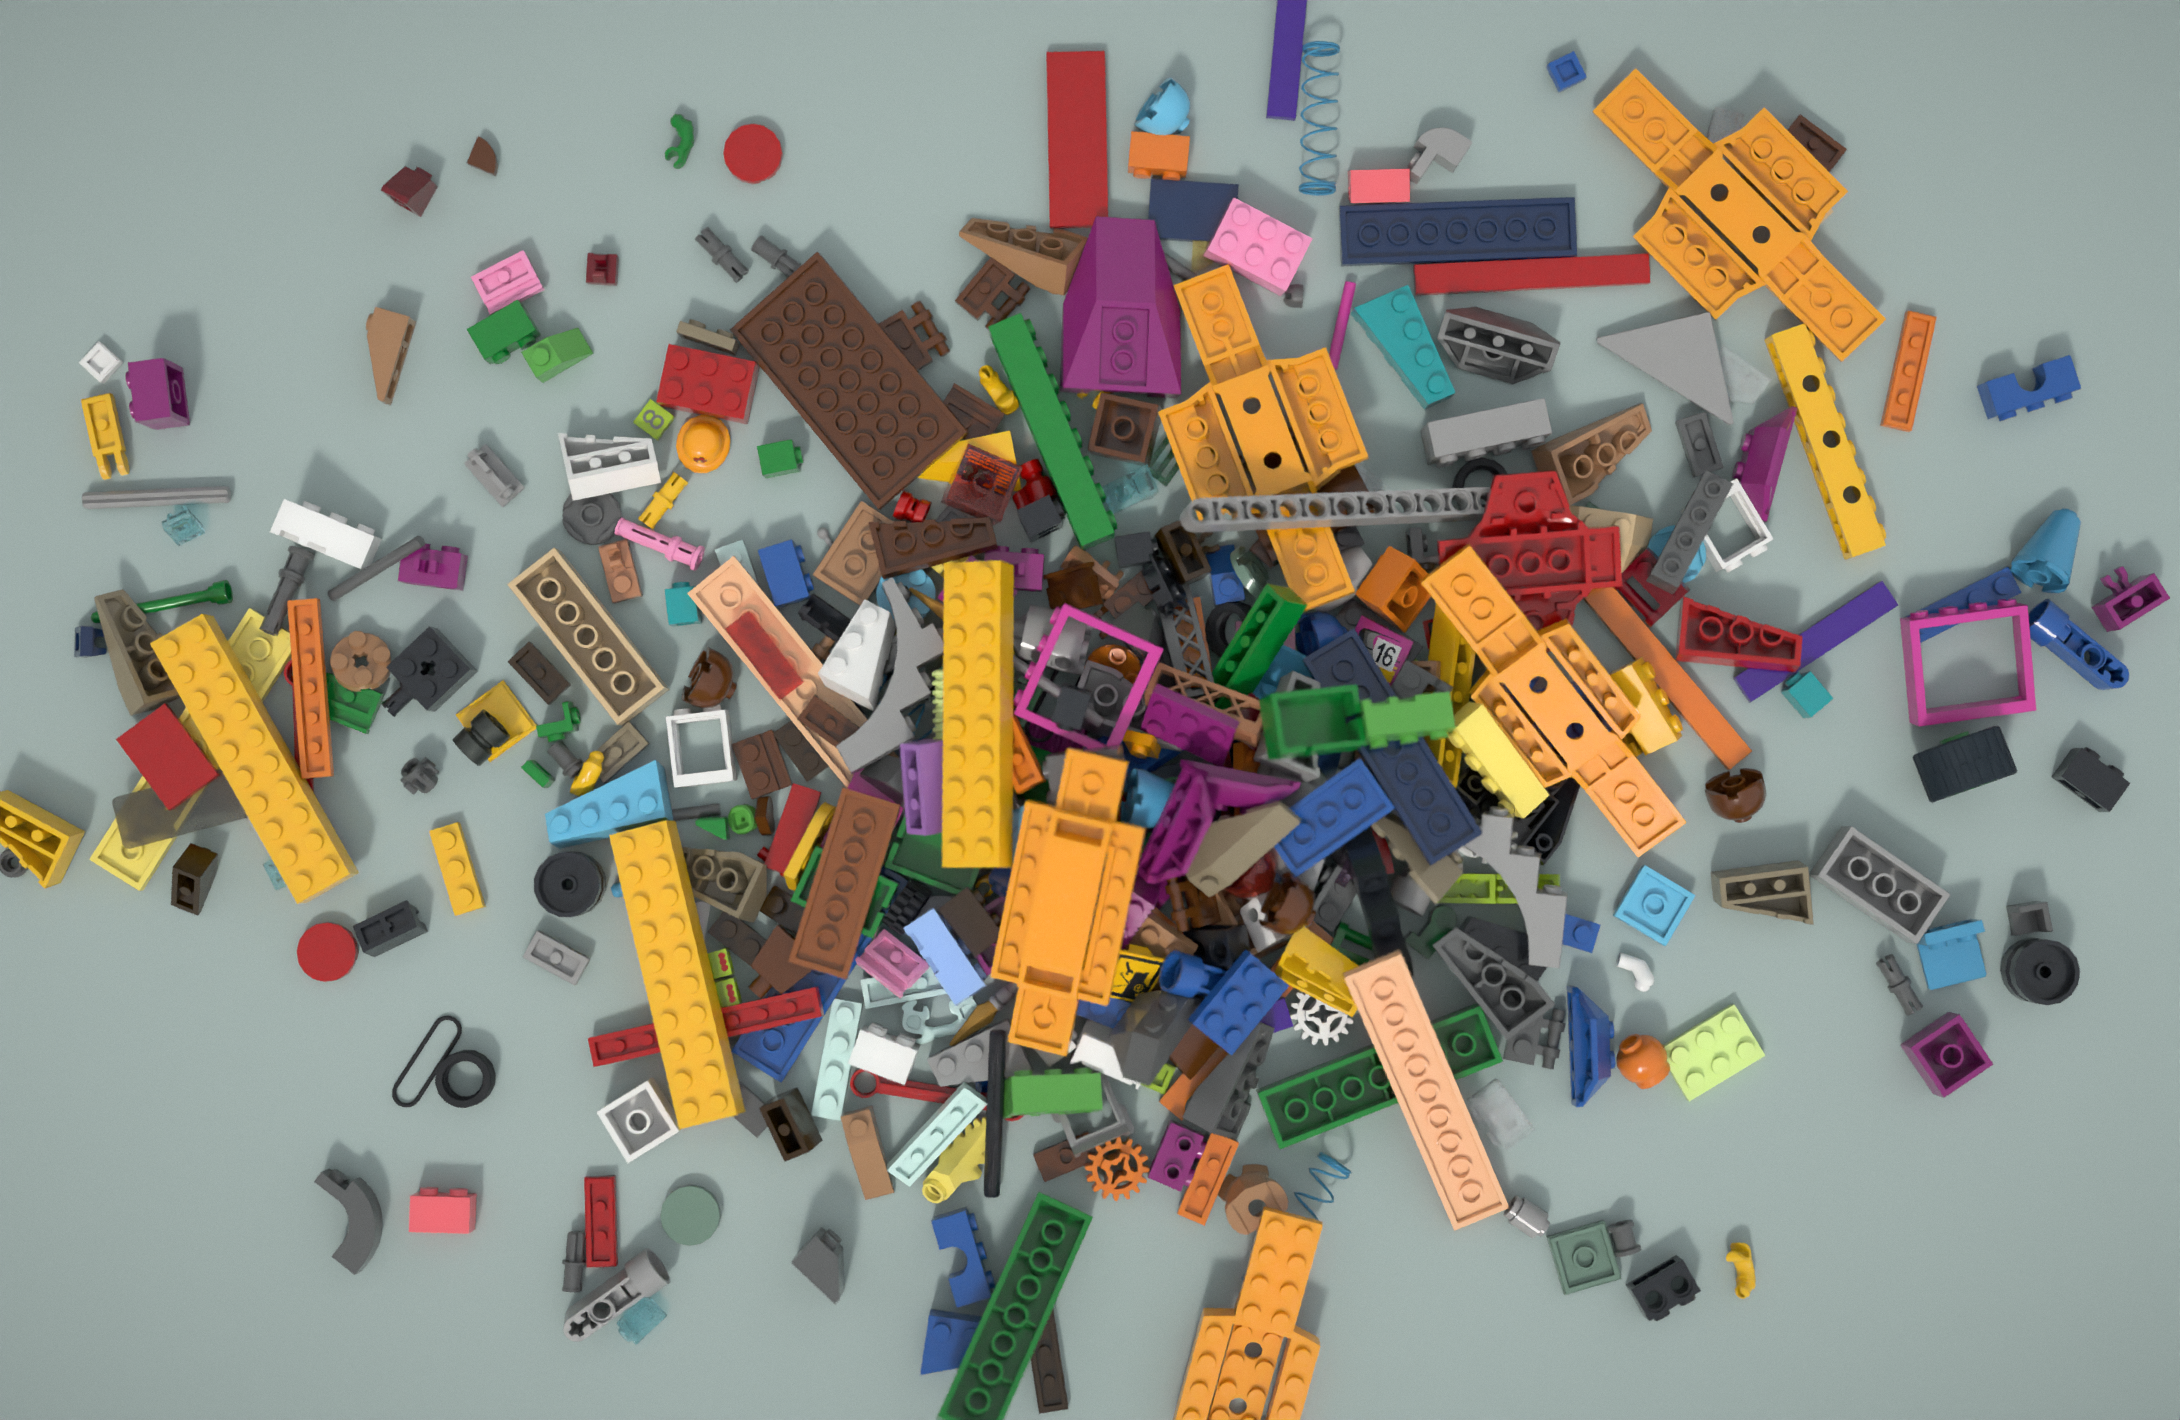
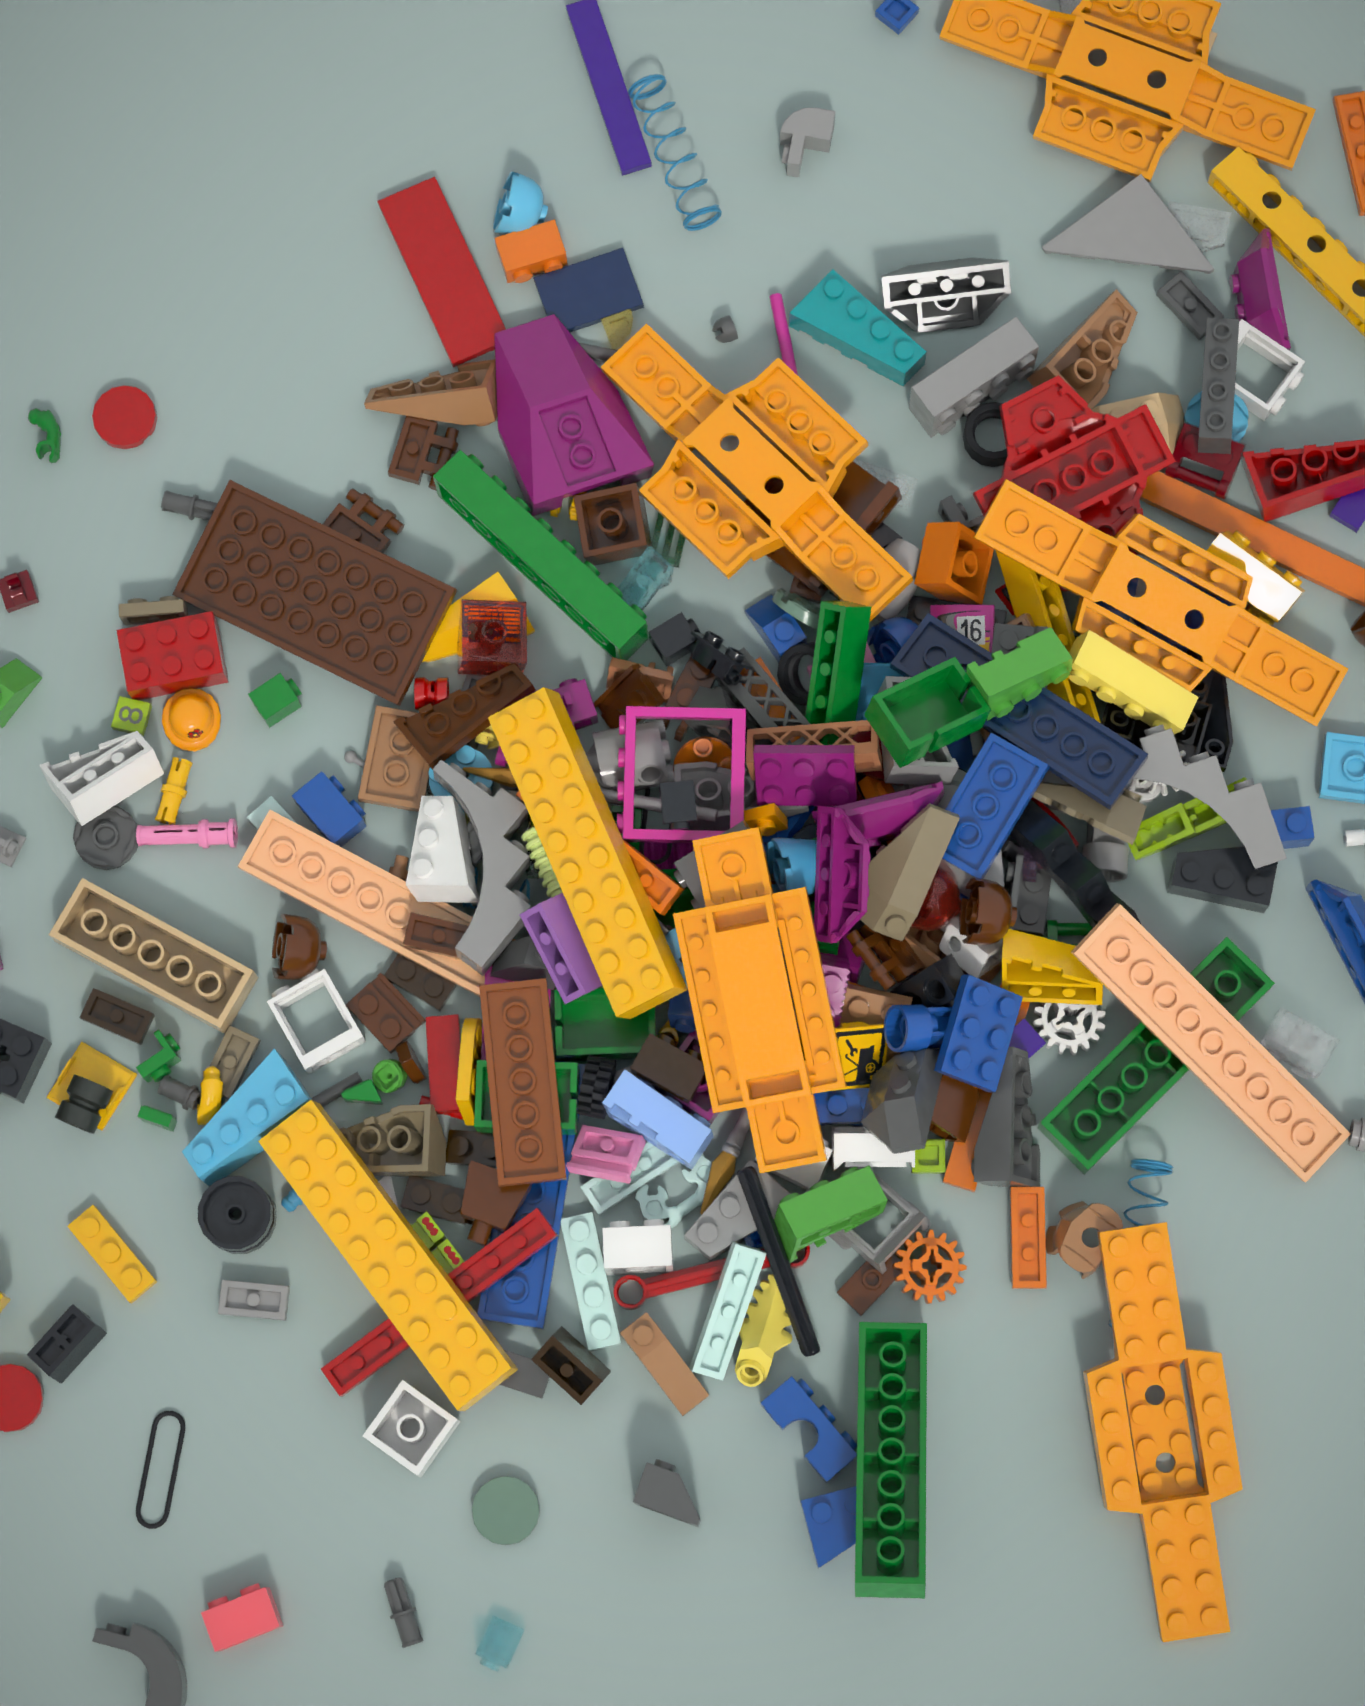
camera: 15 degrees left, 10 degrees down
(419, 775) = (34, 1172): dark grey gear -> none
(449, 1095) = (183, 1464): black tyre -> none
(601, 1221) = (413, 1558): red tile -> none
(620, 571) = (158, 880): nougat plate -> none
(641, 1277) = (481, 1595): light grey beam -> none
(680, 606) = (237, 886): teal brick -> none
(721, 254) = (134, 526): dark grey pin -> none
(764, 655) = (343, 894): clear red plate -> none
(824, 617) = (387, 837): black hinge -> none
(973, 412) = (454, 571): reddish brown plate -> none
(1000, 394) = (476, 547): yellow piece -> none
(1036, 485) = (550, 624): red piece -> none
(1041, 518) = (565, 645): black brick -> none
(1049, 1371) = (951, 1511): dark brown tile -> none
(1176, 1155) = (985, 1228): magenta brick -> none
(1184, 552) = (723, 615): dark brown brick -> none
(1257, 246) = (668, 296): bright pink brick -> none
(1328, 511) = (853, 511): light grey beam -> none
(1379, 185) = (761, 190): coral hinge -> none
(1440, 922) = (1148, 880): dark green leg -> none
(1457, 231) = (859, 203): dark blue plate -> none
(1499, 987) = (1232, 906): dark grey wedge -> none
(1525, 1046) = (1285, 953): dark grey plate -> none
(1531, 274) = (950, 214): red tile -> none

